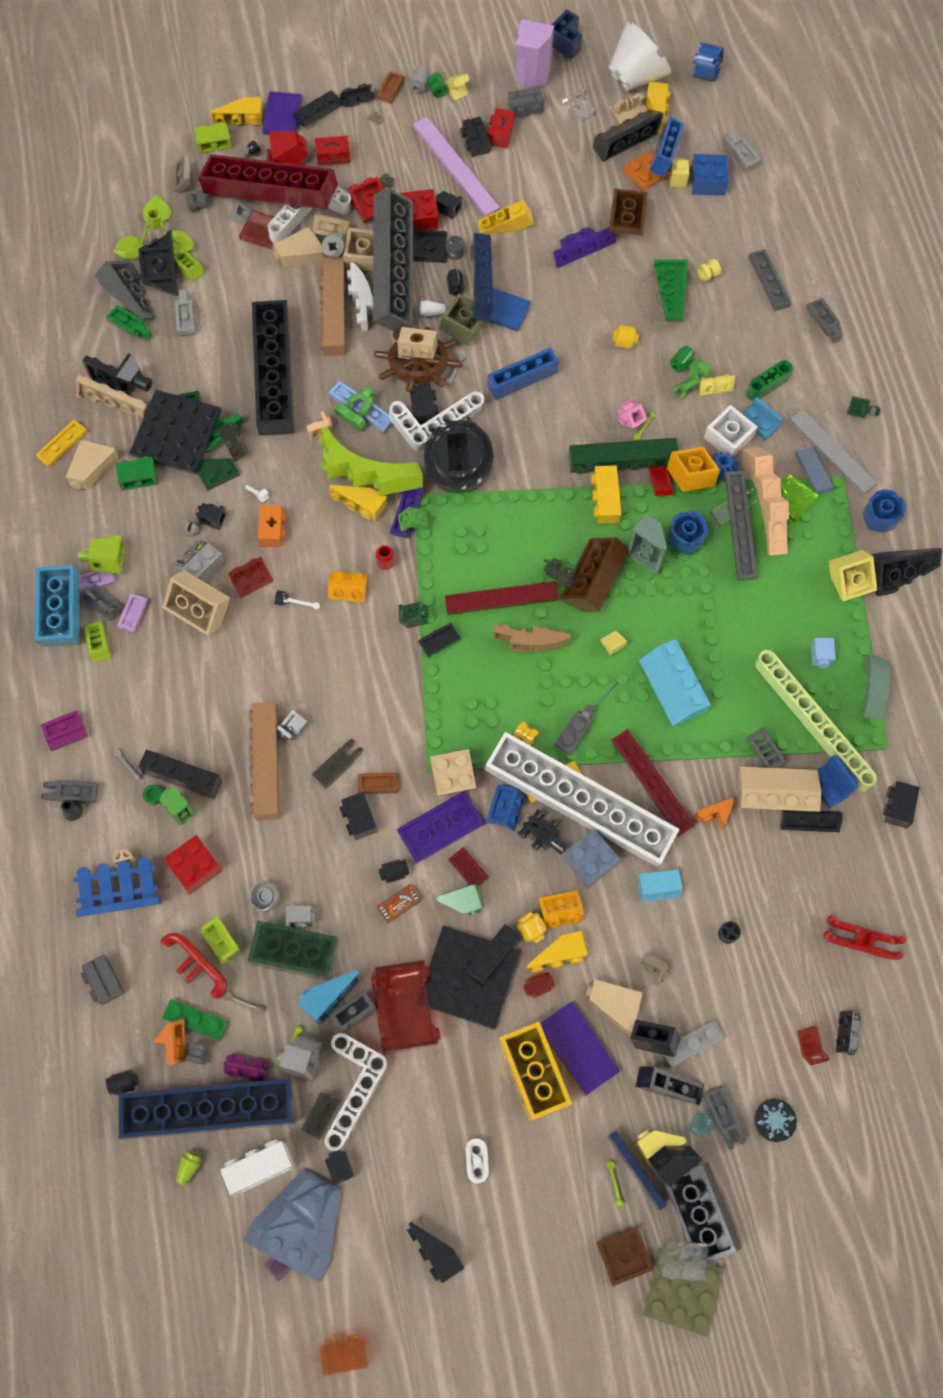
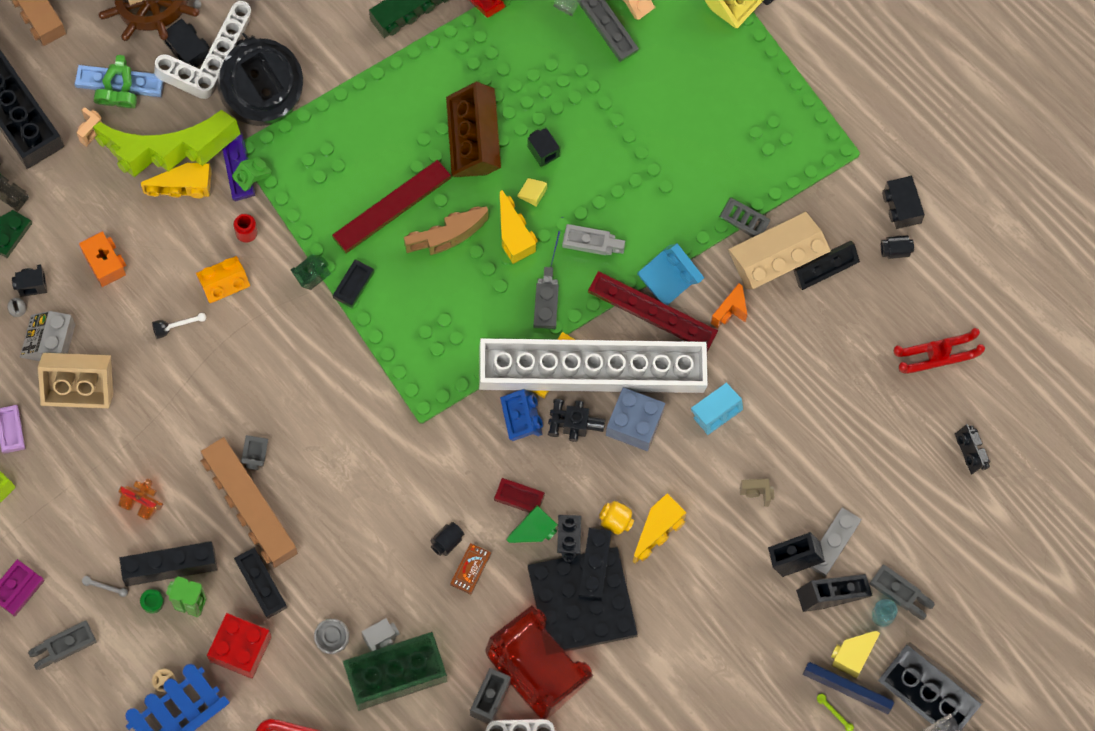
camera: 30 degrees left, 0 degrees up
(71, 810) = (80, 666): black cone -> none
(193, 712) = (131, 495): none -> clear orange hips
(220, 940) = (314, 704): lime hinge -> none
(237, 826) = (260, 583): none -> black plate
(250, 577) = (113, 324): clear red bracket -> none
(261, 495) = (71, 231): white hand -> none
(324, 998) = (454, 697): dark azure slope -> none
(336, 764) = (323, 467): clear smoke hinge -> none
(358, 815) = (378, 505): black brick -> none
(377, 783) = (377, 462): dark orange tile -> none
(440, 827) = (466, 471): dark purple tile -> none
(453, 772) = (449, 409): tan brick -> none
(486, 921) = (569, 536): none -> black hinge
(527, 735) = (499, 331): yellow wheel -> none
(534, 1072) = (700, 650): yellow brick -> none
(538, 985) = (655, 569): clear red brick -> none
(555, 569) = (430, 147): clear smoke hinge -> none
(561, 909) = (635, 484): light orange bracket -> none
(579, 668) = (515, 237): none -> yellow slope
(579, 1048) = (728, 607): dark purple tile -> none
(606, 494) = (437, 42): yellow brick -> none
(615, 1003) = (739, 545): tan slope -> none
(636, 703) = (592, 240): none -> light grey hinge
(640, 613) = (543, 146): none -> black brick
(648, 543) = (513, 71): sand green slope -> none
(674, 683) = (618, 200): medium azure slope -> none
(674, 1162) = (879, 658): black slope -> none
(682, 761) = (670, 274): none -> dark azure bracket
(687, 532) = (543, 38): blue brick -> none
(733, 932) = (809, 411): black wheel -> none
(775, 1120) = (950, 569): black tile -> none
(811, 1046) = (944, 480): clear red bracket -> none
(813, 710) = (781, 172): yellowish green beam -> none
(822, 652) = (746, 91): light blue brick -> none
(835, 782) = (830, 213): blue bracket -> none
(876, 837) = (897, 247): none -> black brick
(877, 687) = (818, 97): sand green arch -> none

